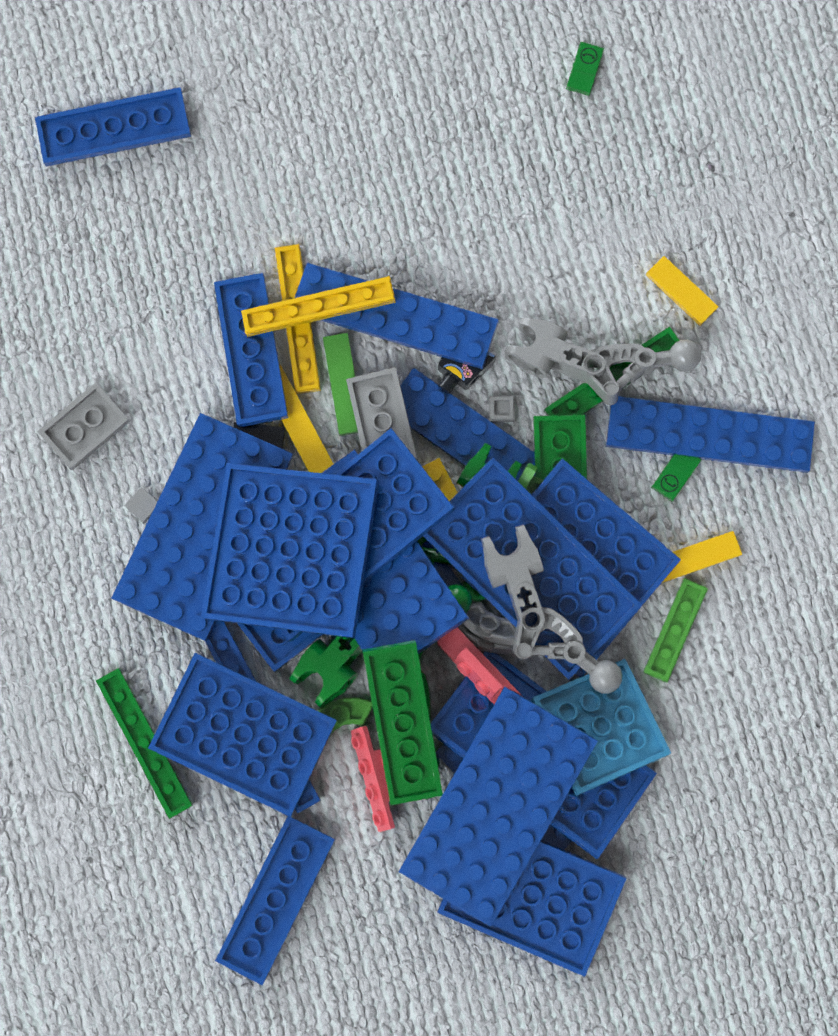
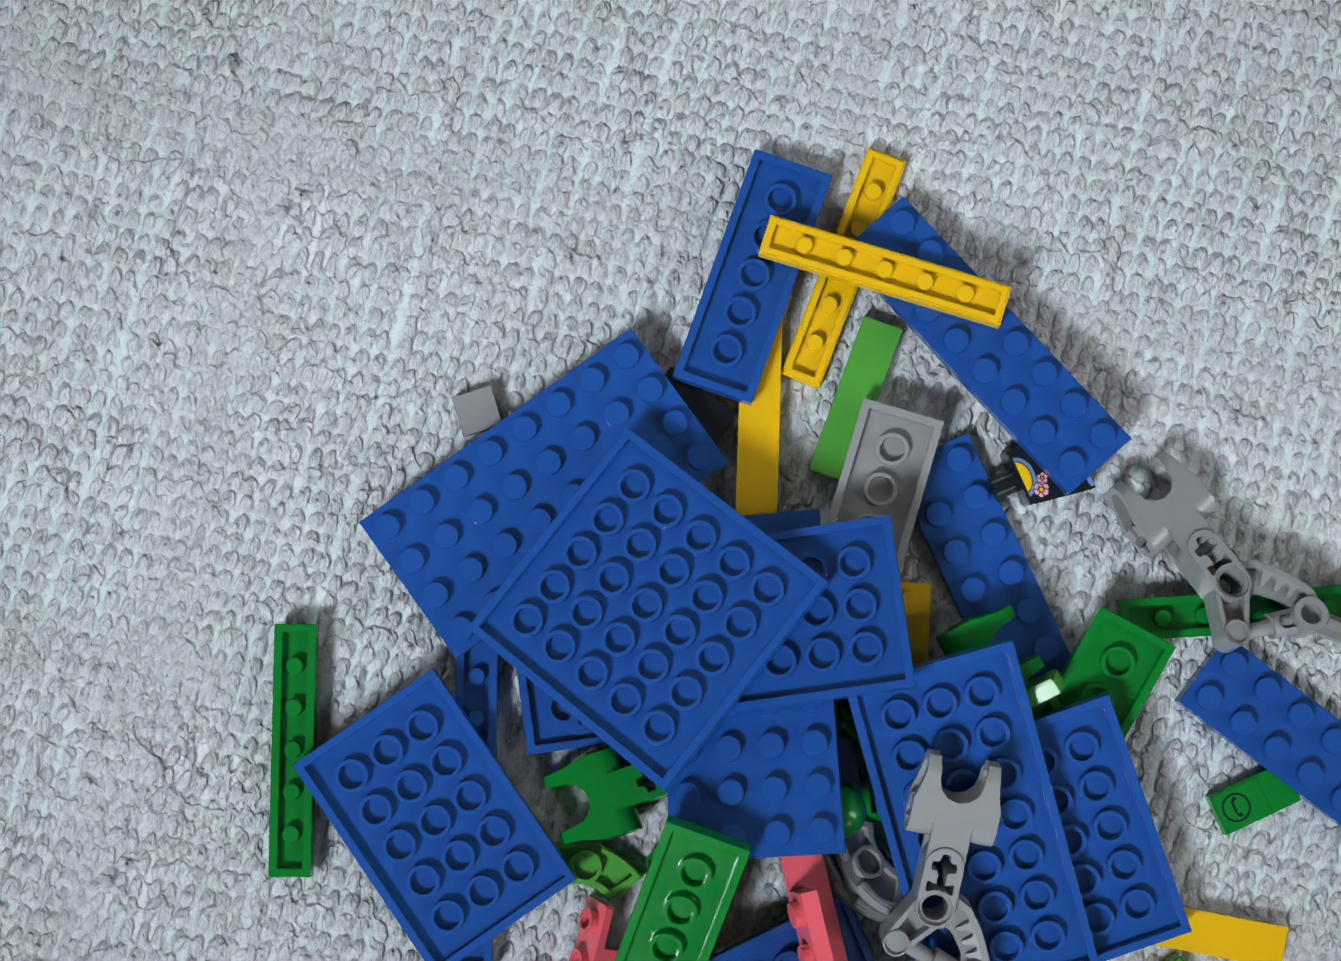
camera: 25 degrees right, 5 degrees up
(83, 426) = (457, 252): light grey plate -> none
(501, 409) = (1058, 563): light grey tile -> none

